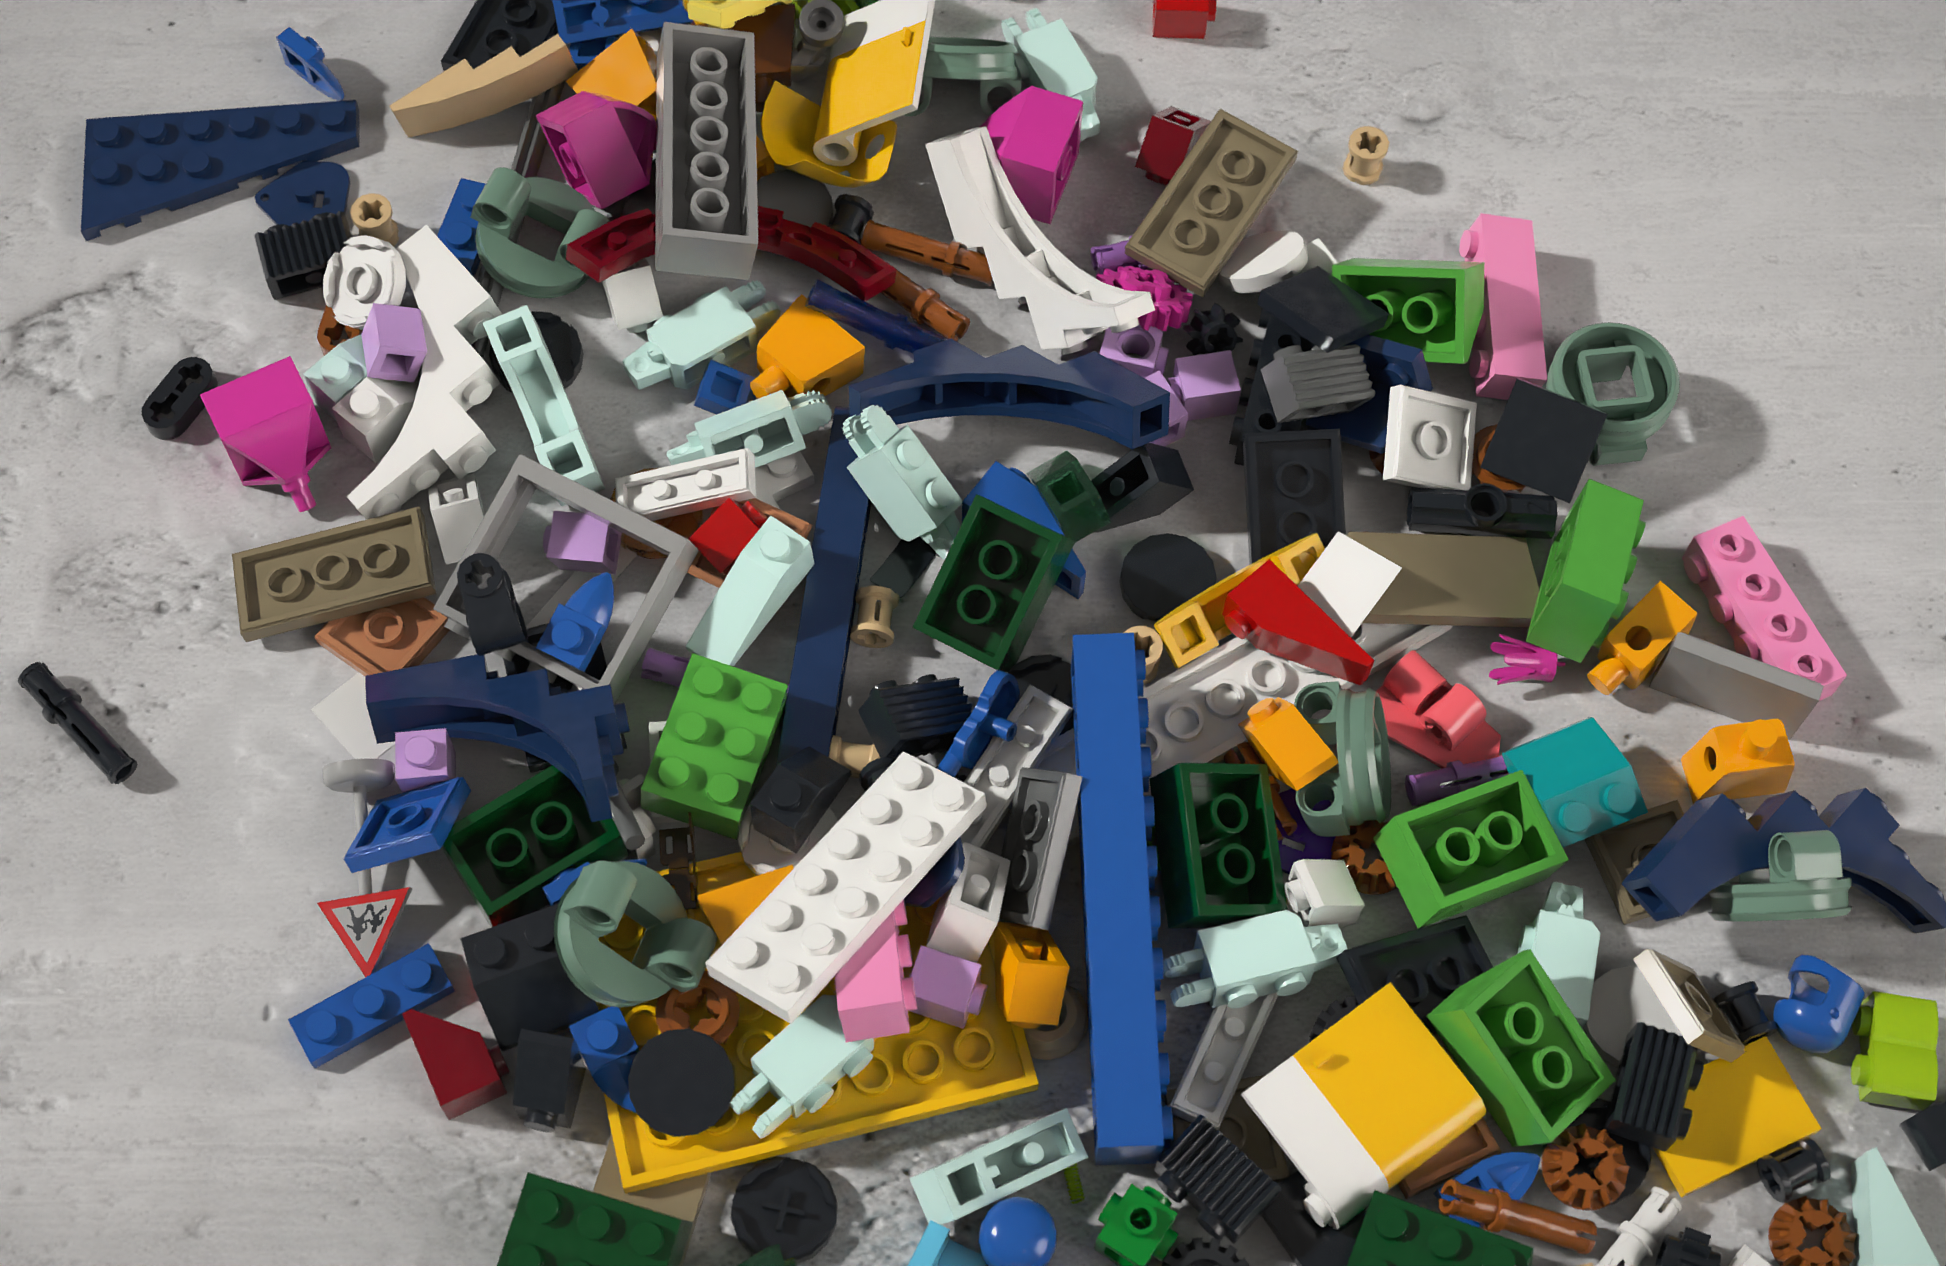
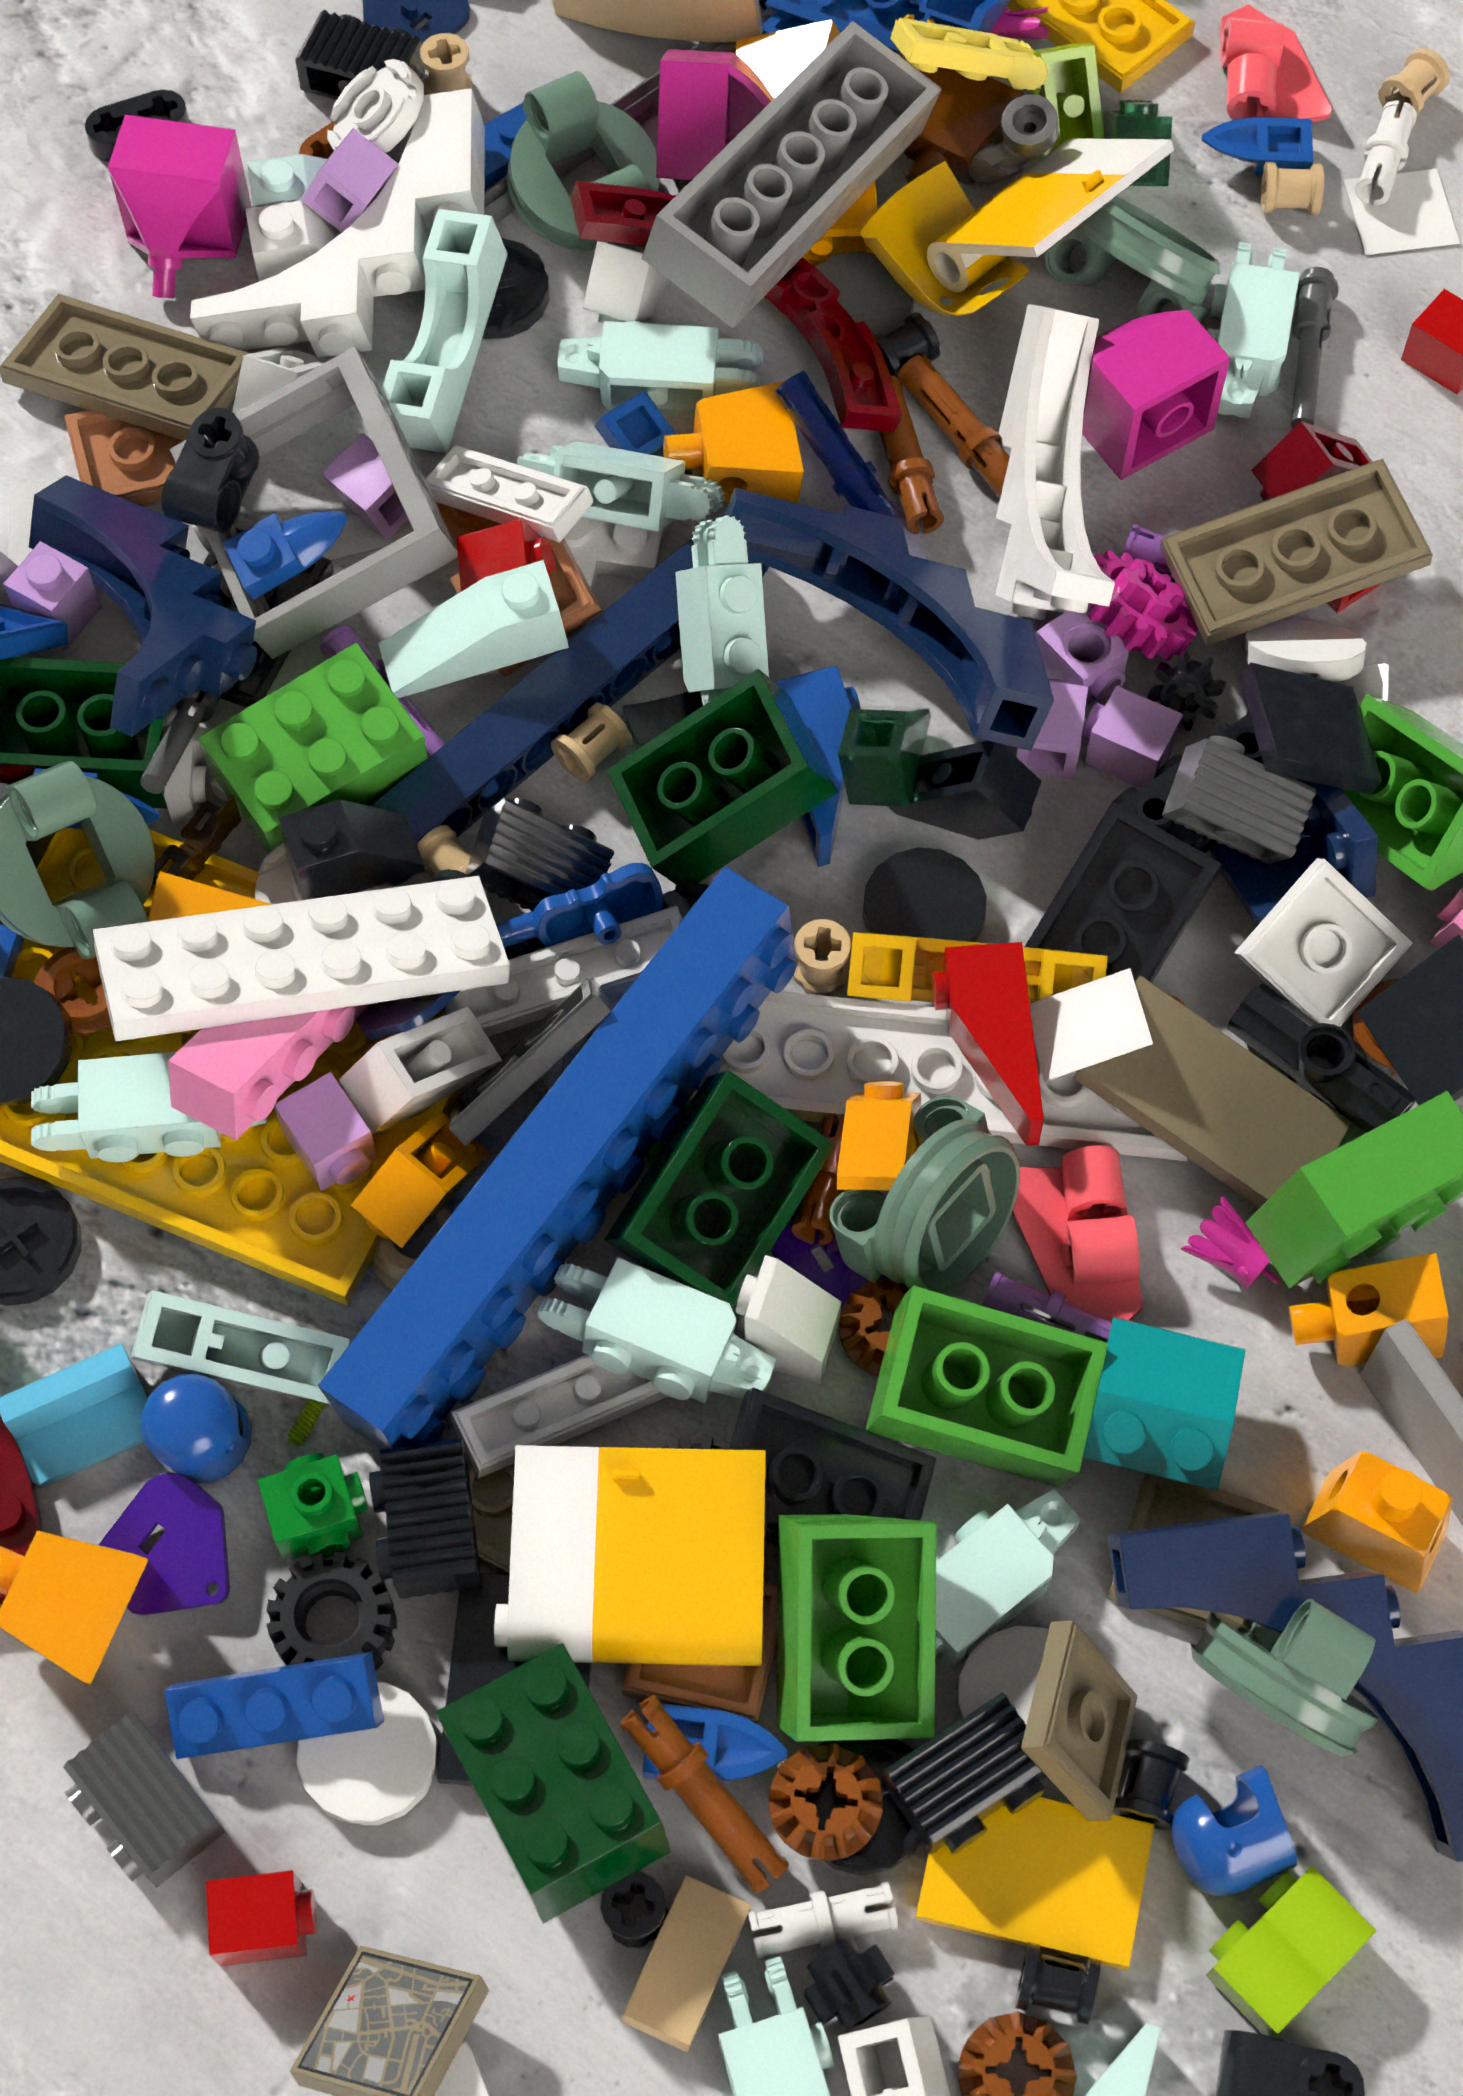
camera: 40 degrees right, 0 degrees up
(1091, 49) = (1315, 297): none -> dark grey pin

